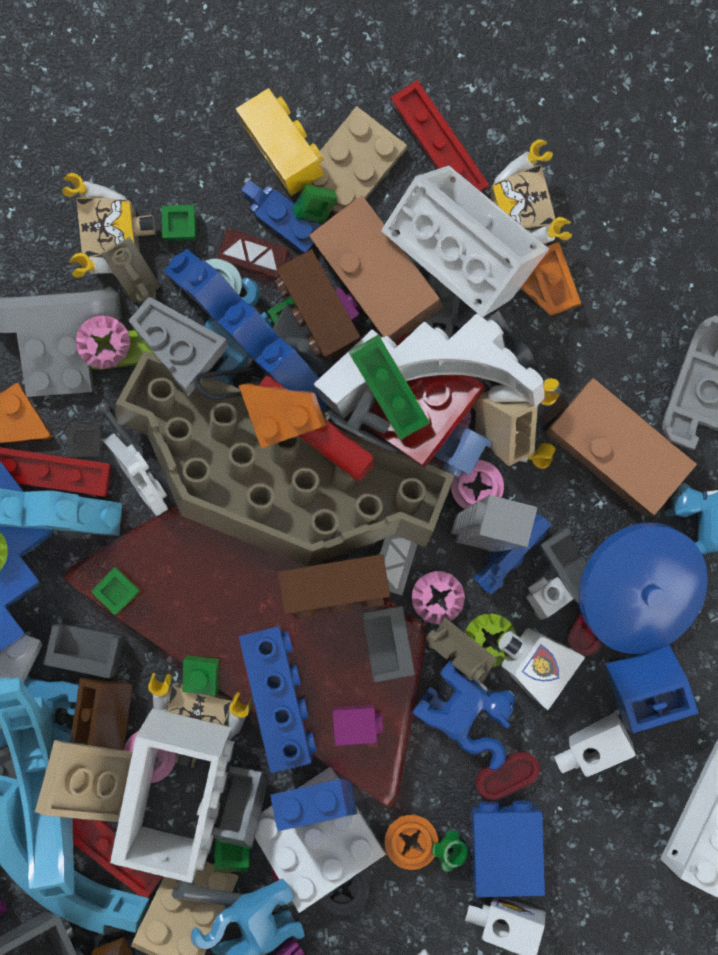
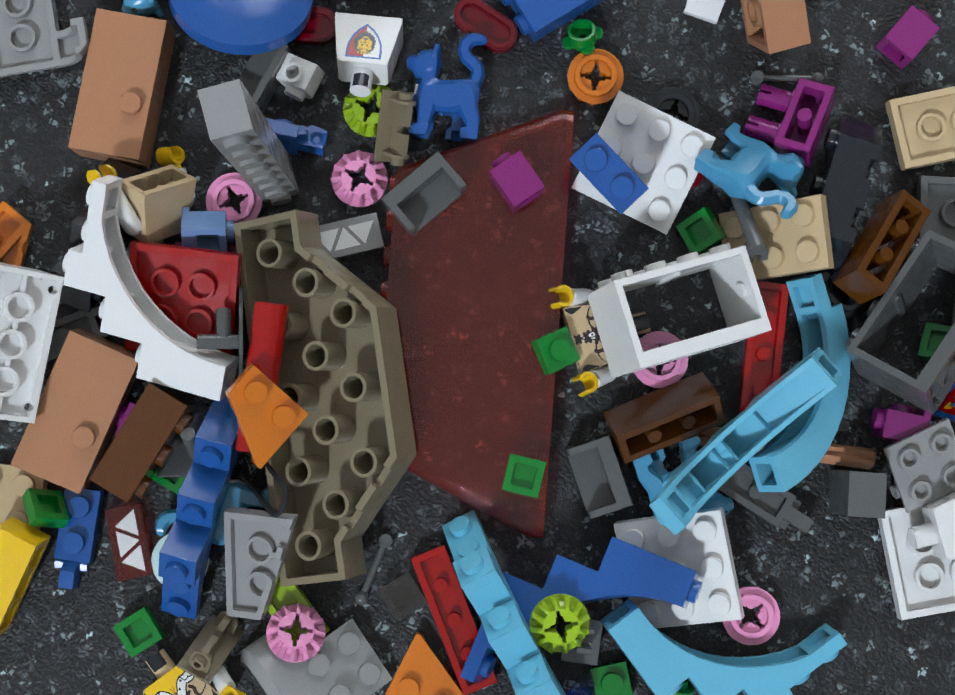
camera: 120 degrees left, 0 degrees up
(84, 782) = (711, 393): tan plate -> none
(135, 469) = (402, 521): white wing -> none
(242, 807) = (654, 244): dark grey panel -> none
(276, 698) = (534, 266): blue brick -> none
(334, 586) = (397, 269): reddish brown brick -> none
(389, 387) = (180, 326): green plate -> none

